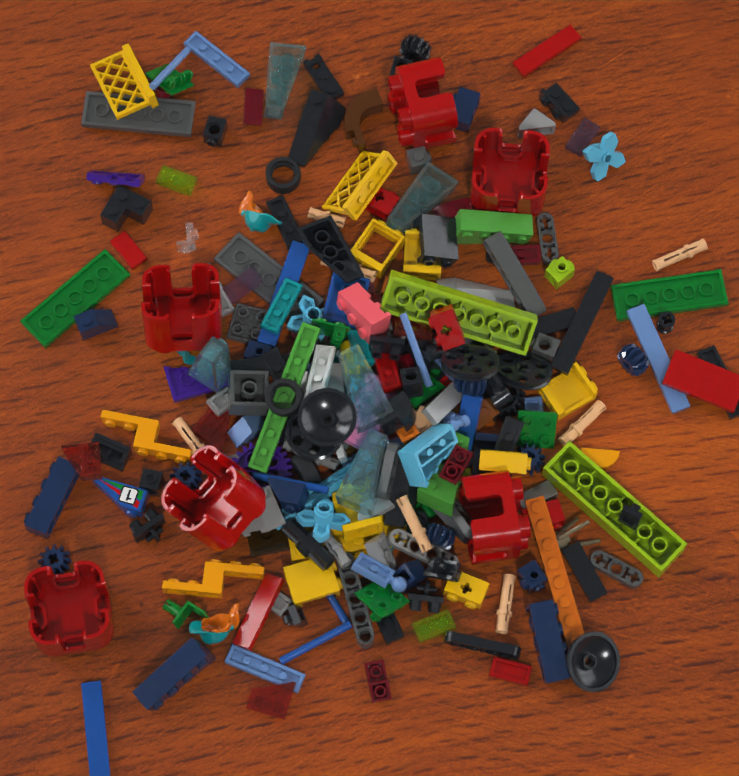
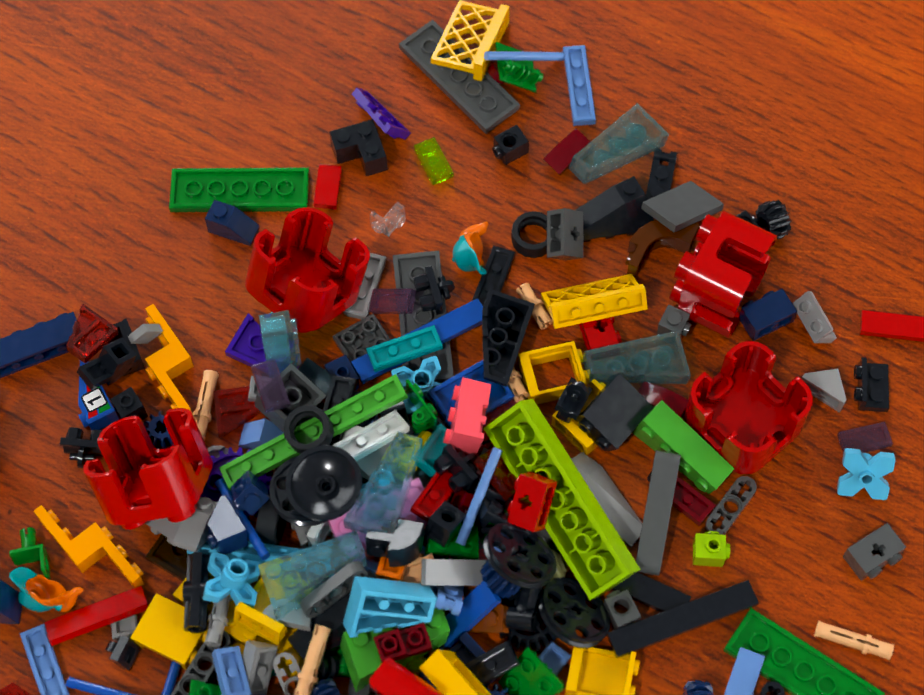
camera: 45 degrees right, 5 degrees down
(118, 430) = (145, 333): none -> light grey tile
(118, 466) = (110, 366): none -> black brick
(233, 392) = (270, 385): none -> clear purple tile
(264, 255) = (433, 300): none -> black hips
(282, 464) = (249, 493): none -> dark blue brick
(305, 159) = (564, 234): none -> dark grey brick
(356, 84) = (682, 206): none -> dark grey tile
(409, 252) = (572, 400): none -> black hips
(493, 89) = (814, 318): none -> light grey bracket
(645, 206) = (882, 541): none -> dark grey brick

